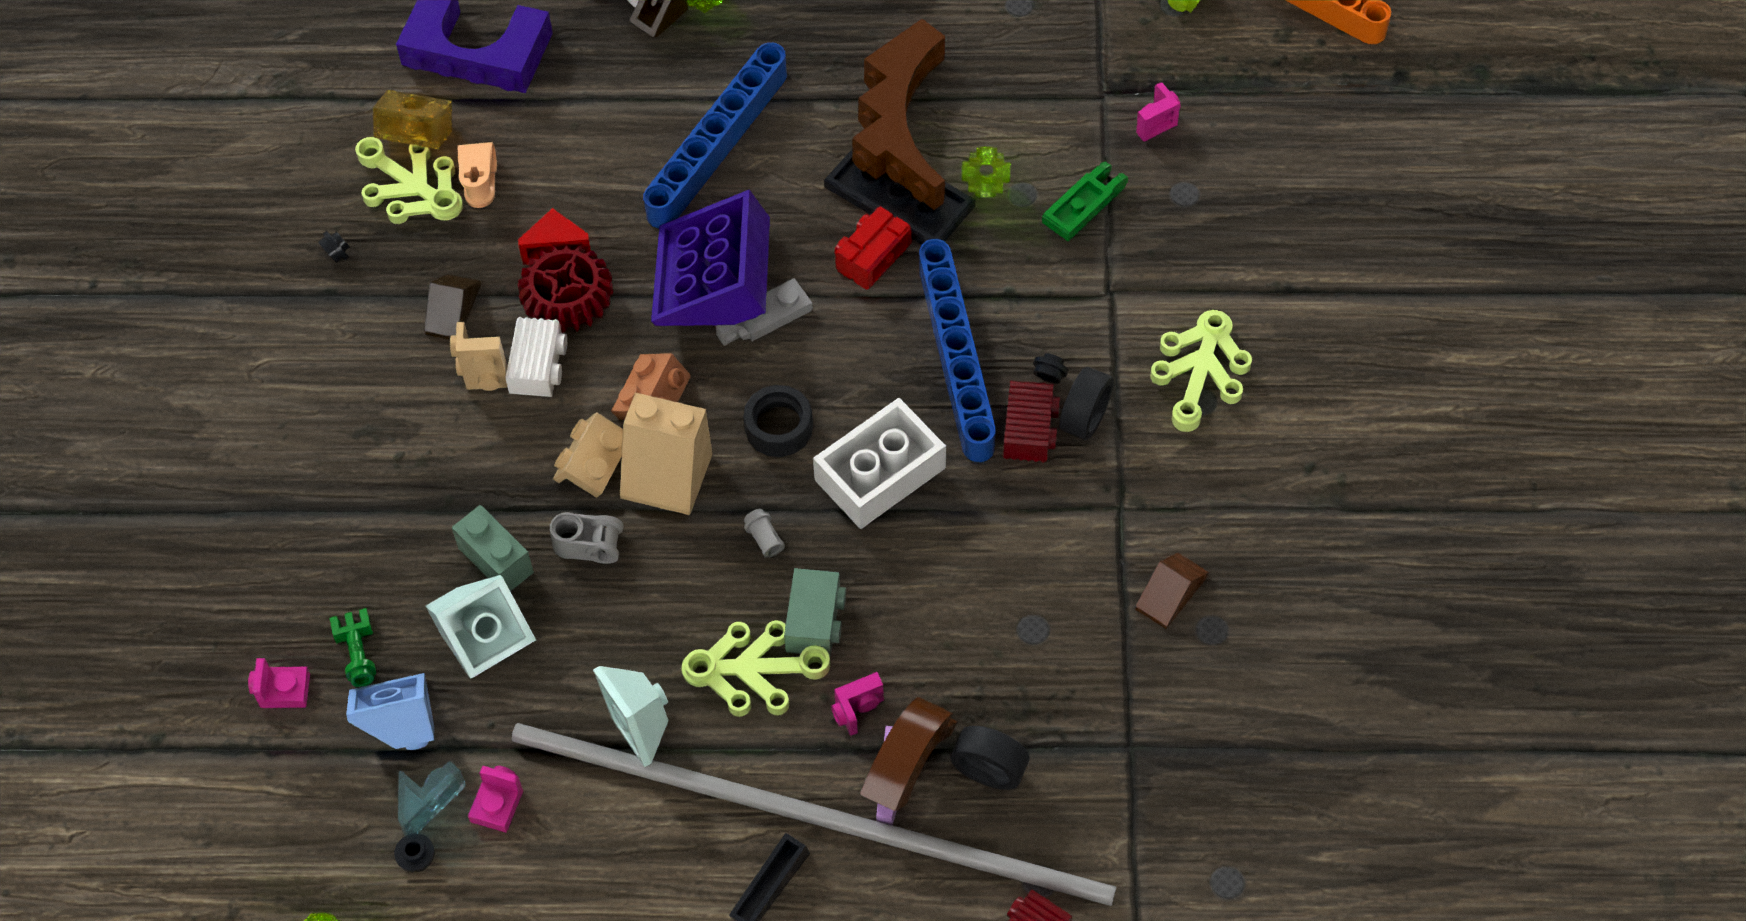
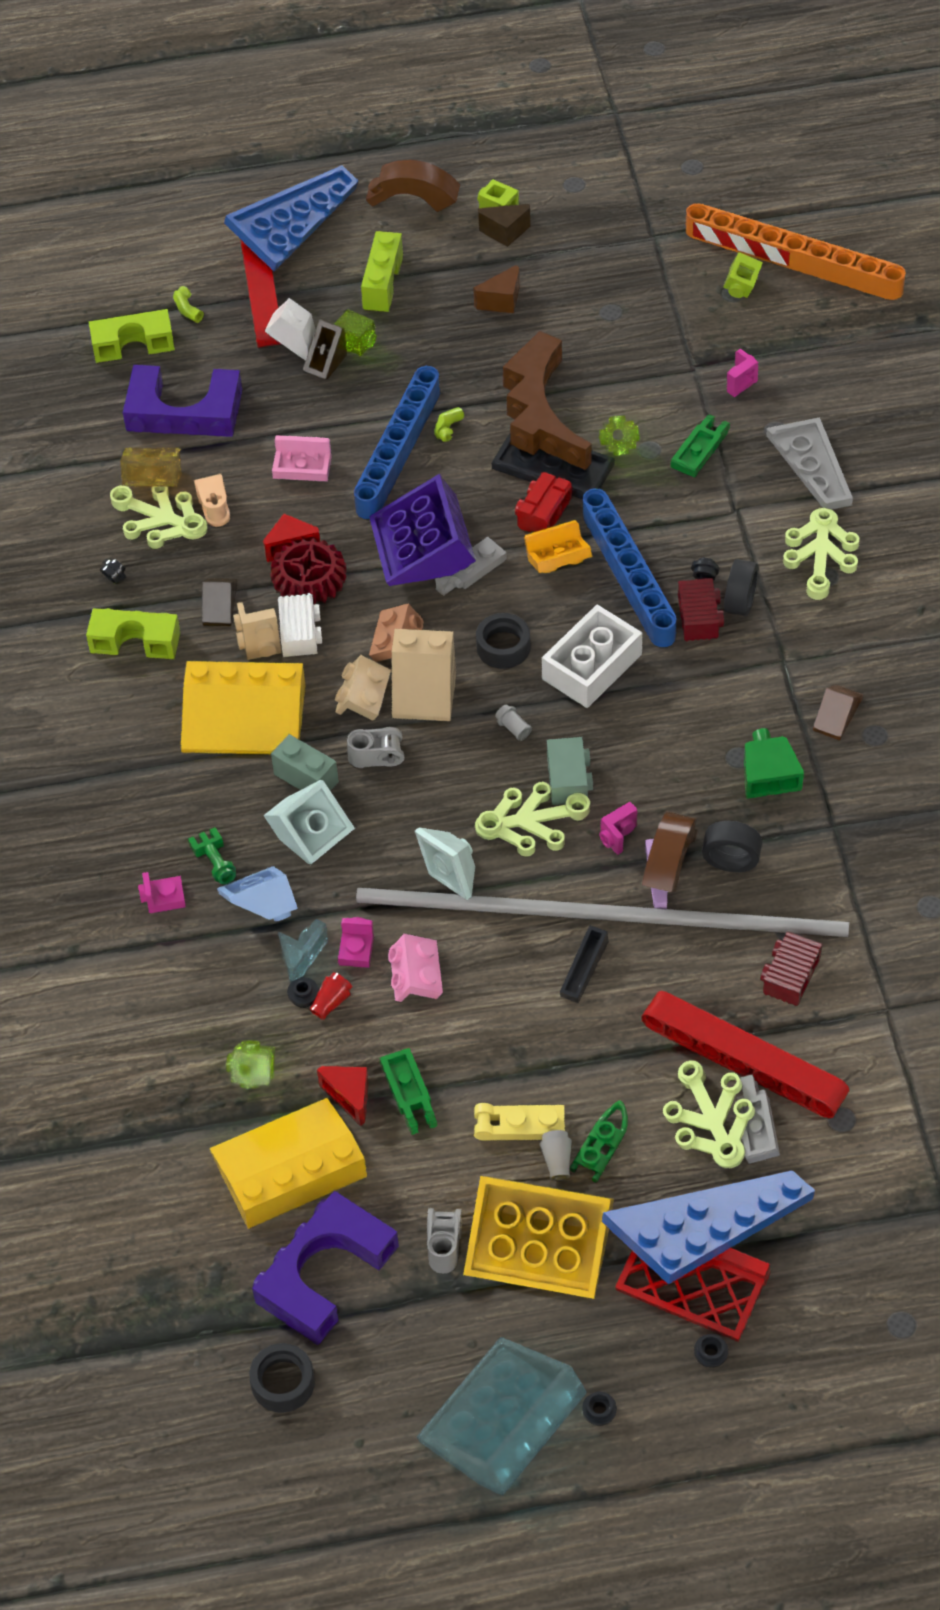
camera: 10 degrees left, 5 degrees down
(310, 322) = (112, 627): none -> lime arch
(439, 454) = (241, 706): none -> yellow slope
(445, 865) = (331, 994): none -> red cone
(559, 847) = (415, 967): none -> bright pink bracket
(596, 138) = (302, 458): none -> bright pink bracket
(776, 124) = (442, 428): none -> lime arm
(874, 307) = (556, 547): none -> light orange bracket
(1066, 651) = (770, 766): none -> green torso
(1220, 244) = (813, 460): none -> light grey wing

